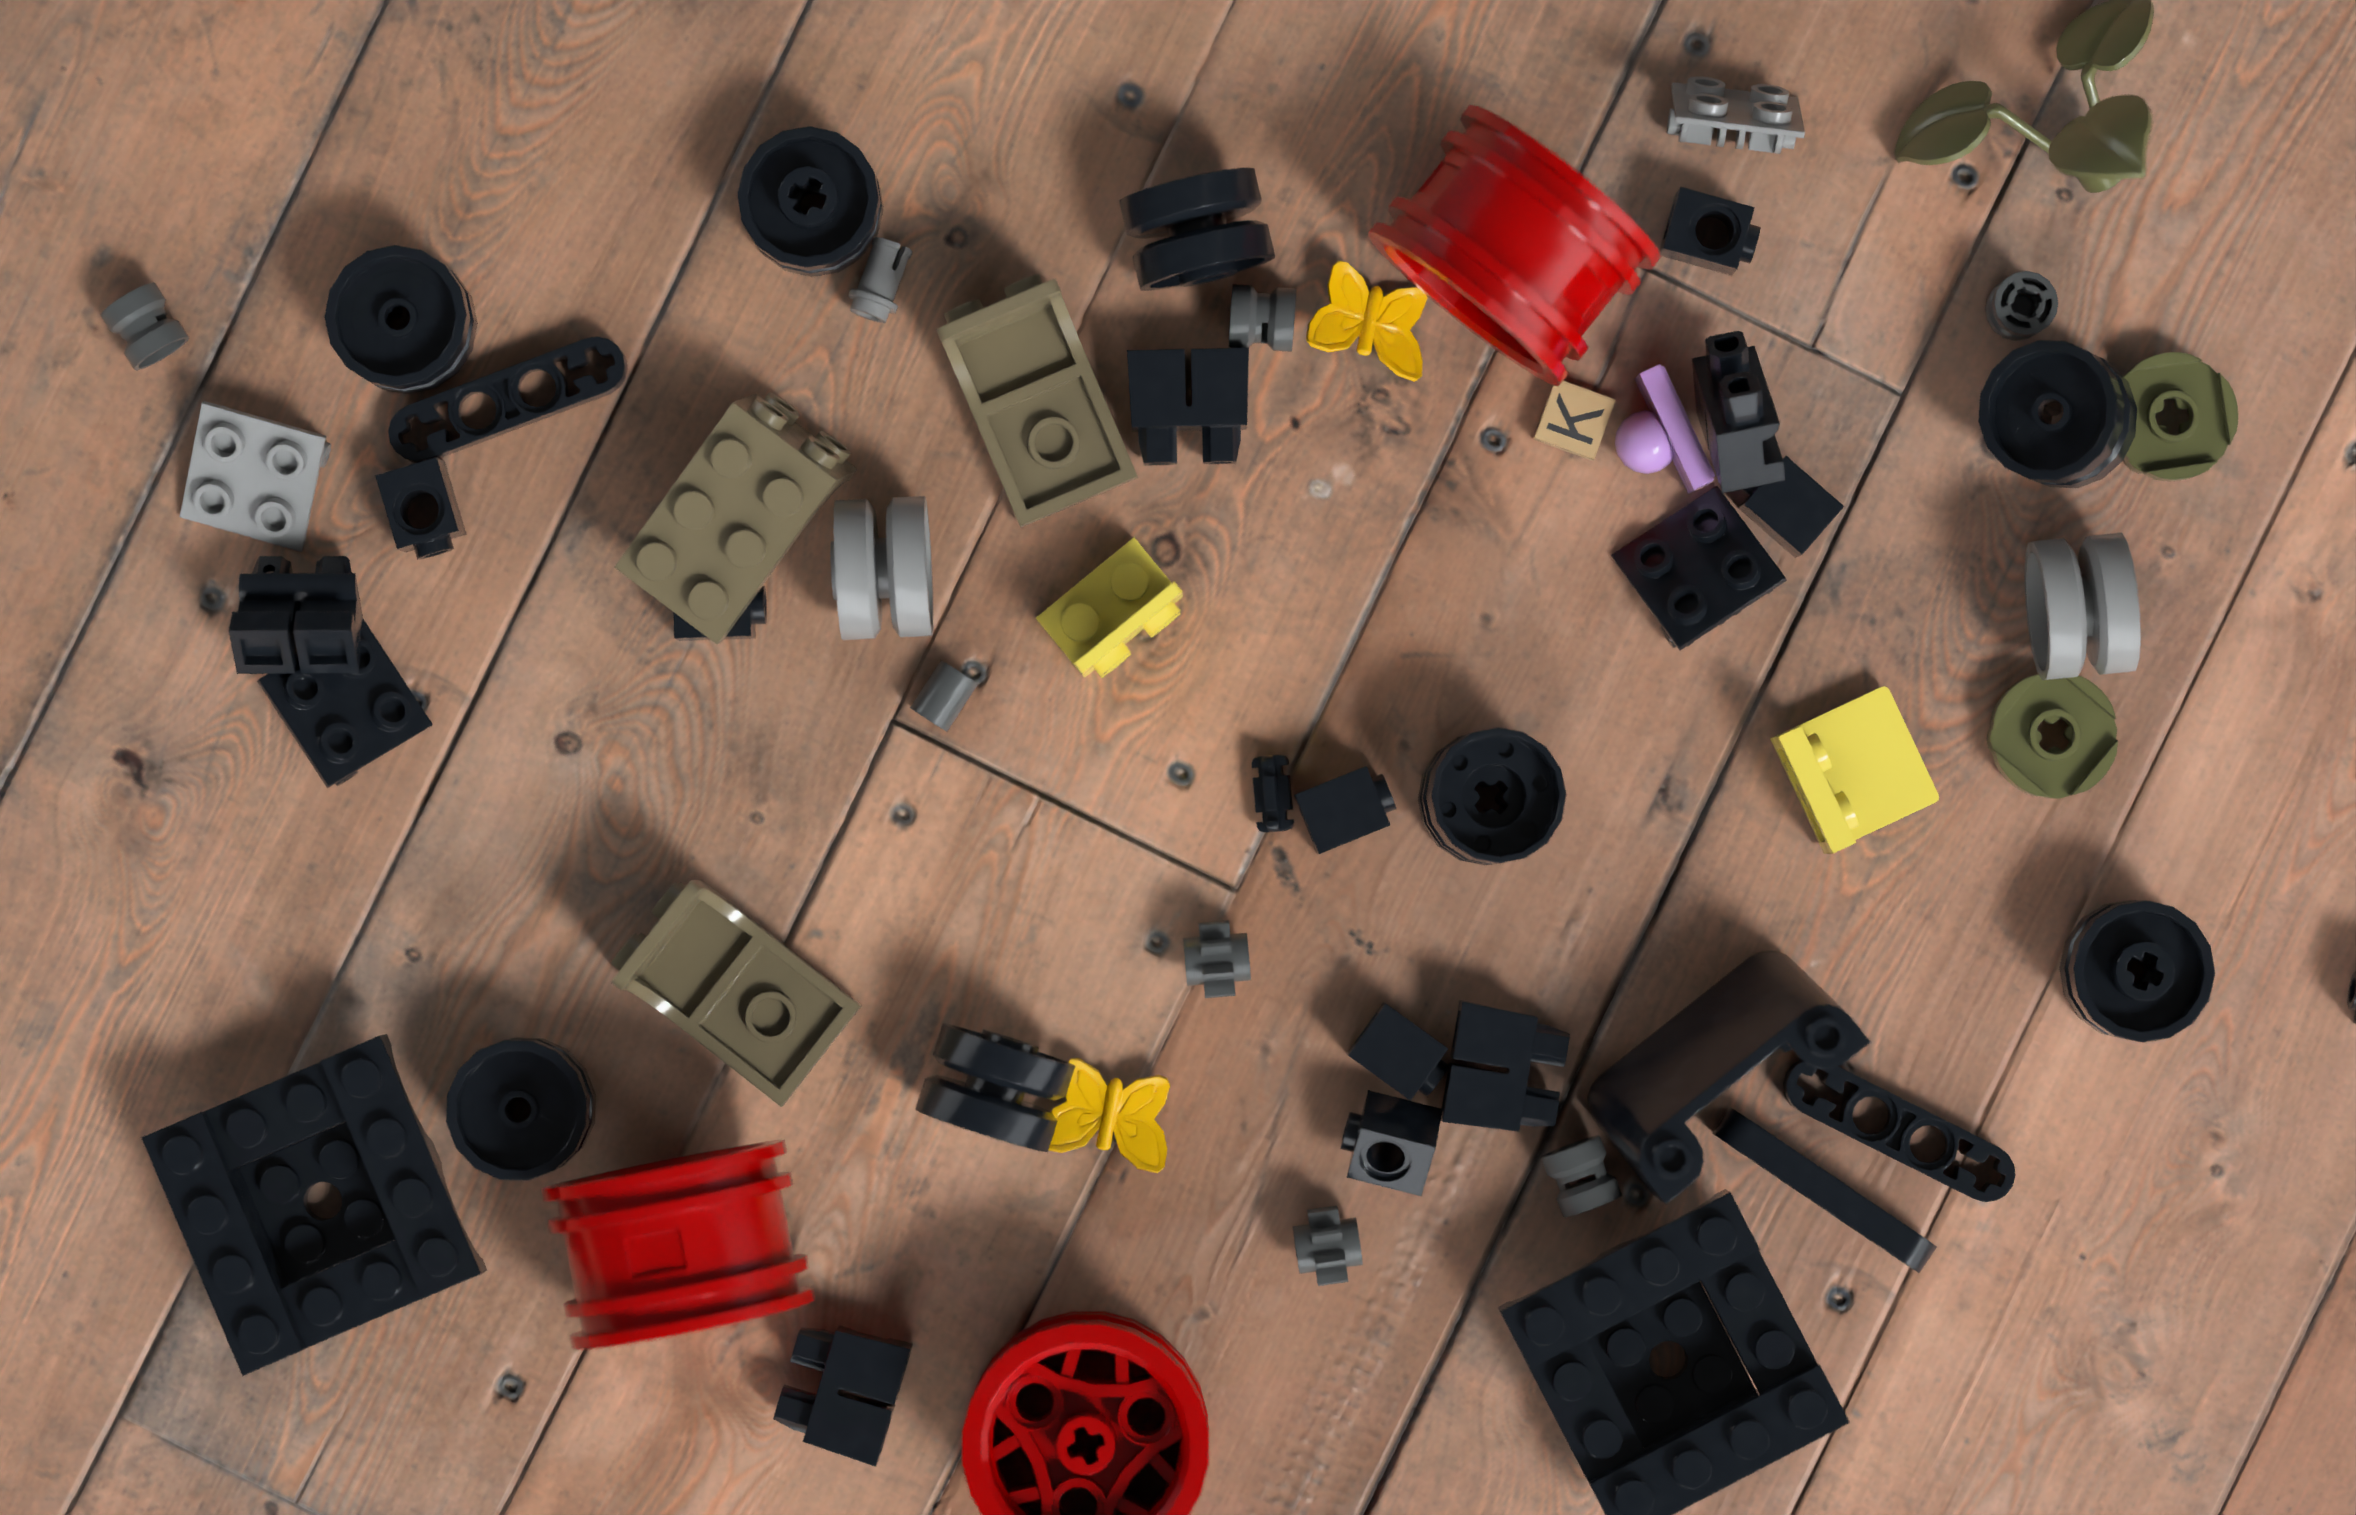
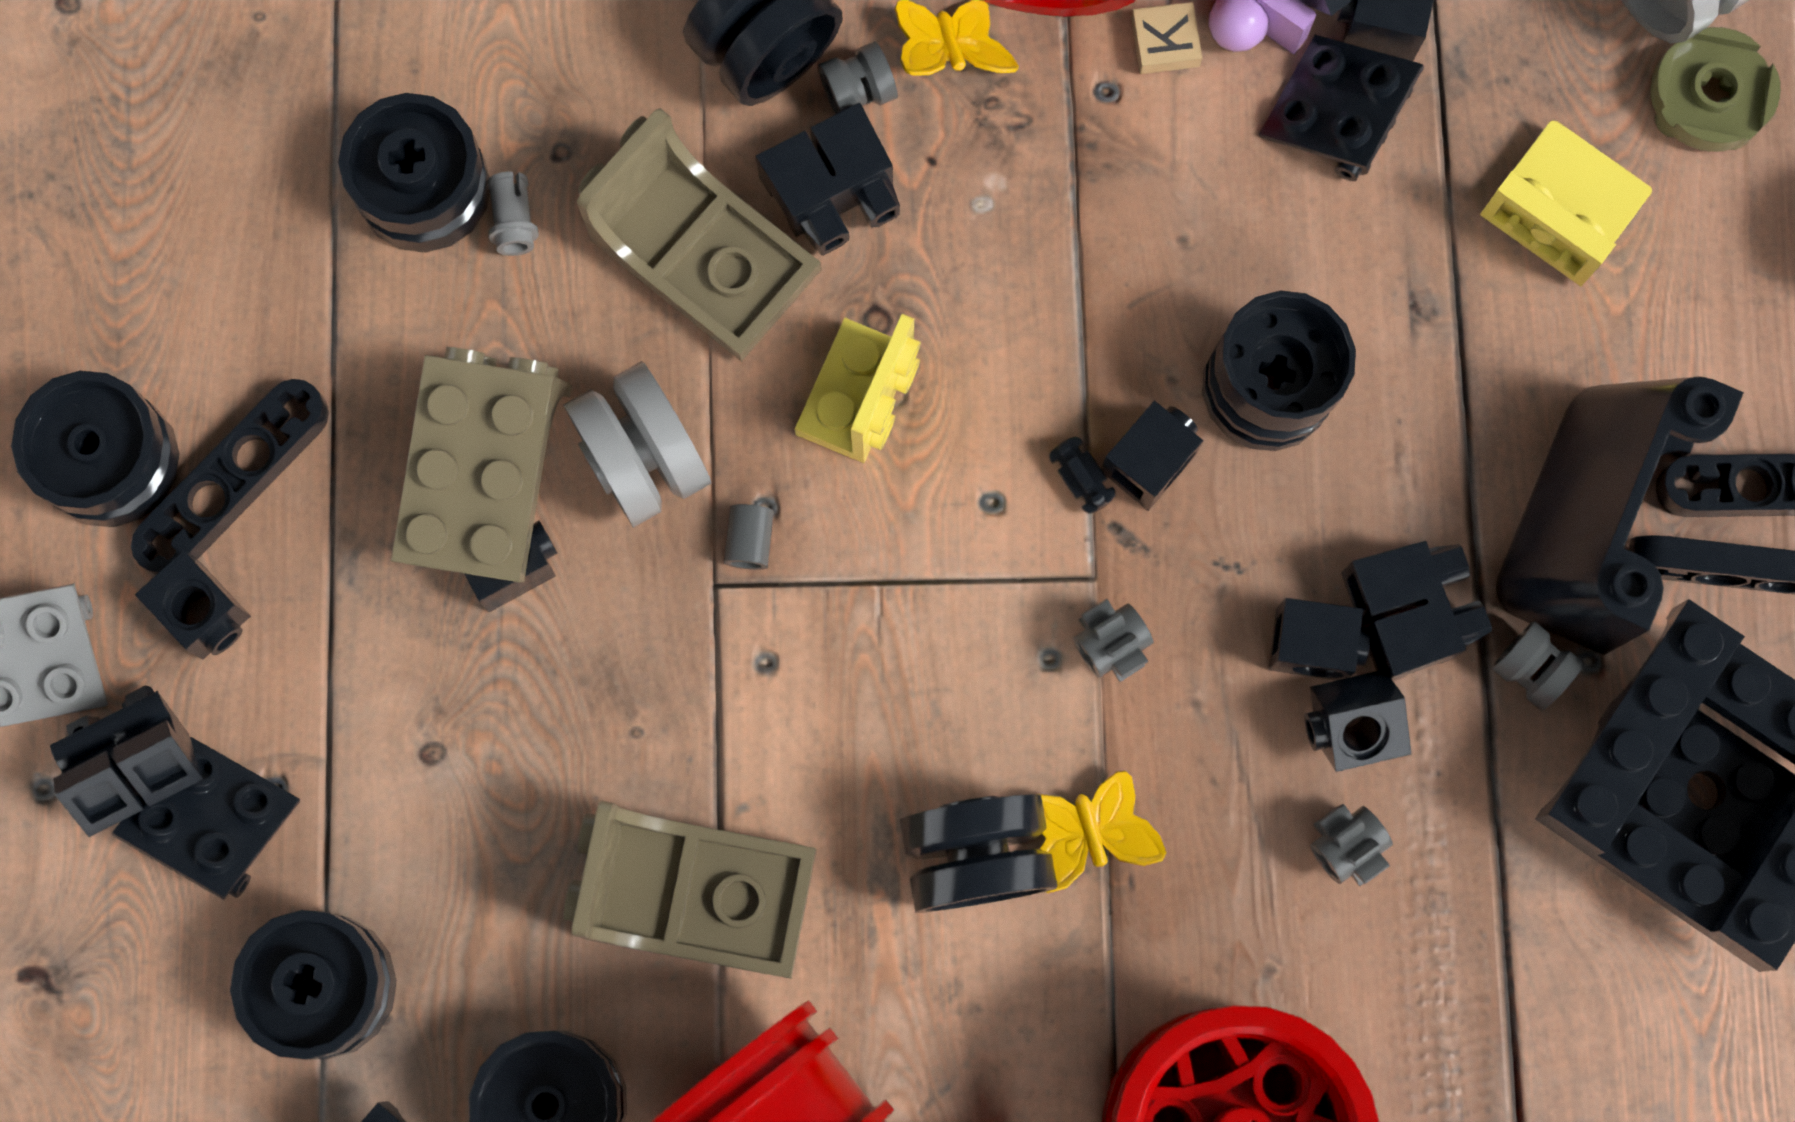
camera: 30 degrees left, 10 degrees down
(332, 909) = (274, 980): none -> black wheel

